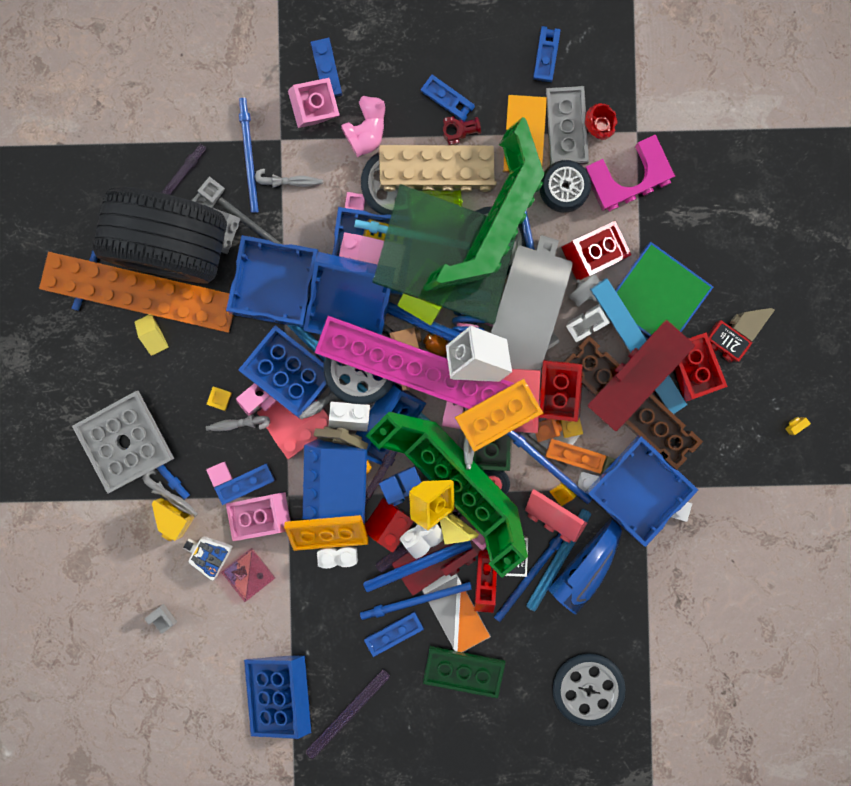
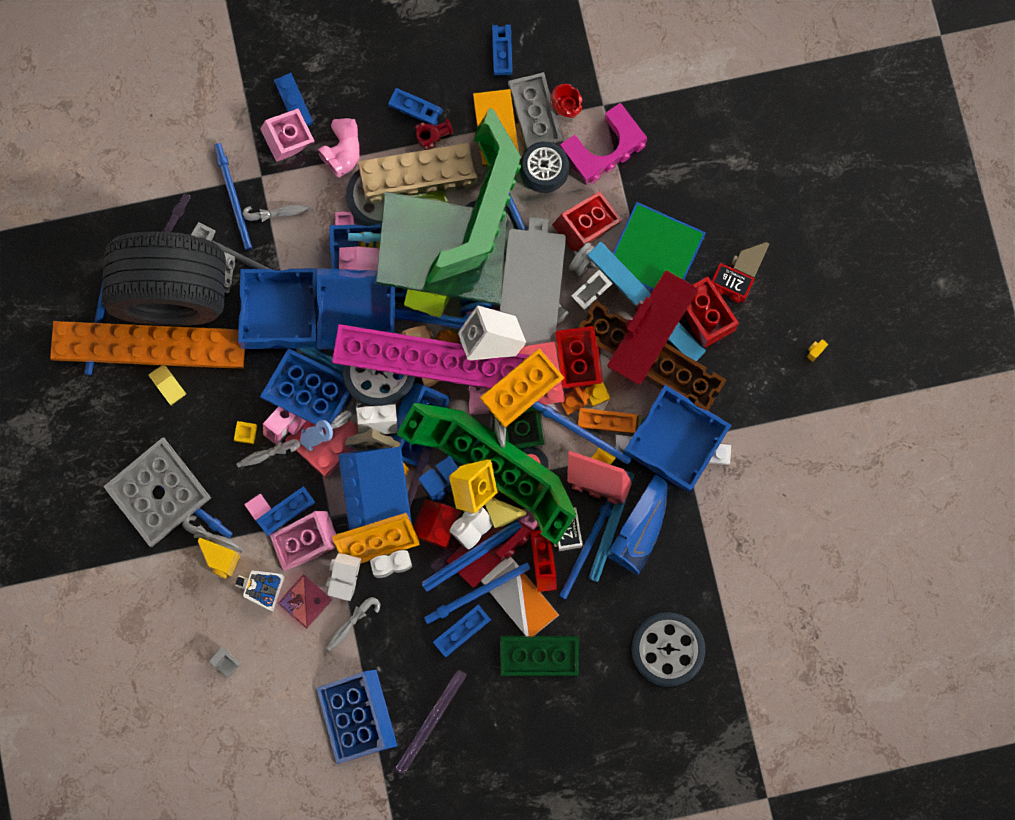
camera: 15 degrees left, 10 degrees down
(282, 609) = (344, 630): none -> light grey piece
(284, 419) = (314, 435): none -> light blue brick
(289, 561) = (343, 577): none -> white piece

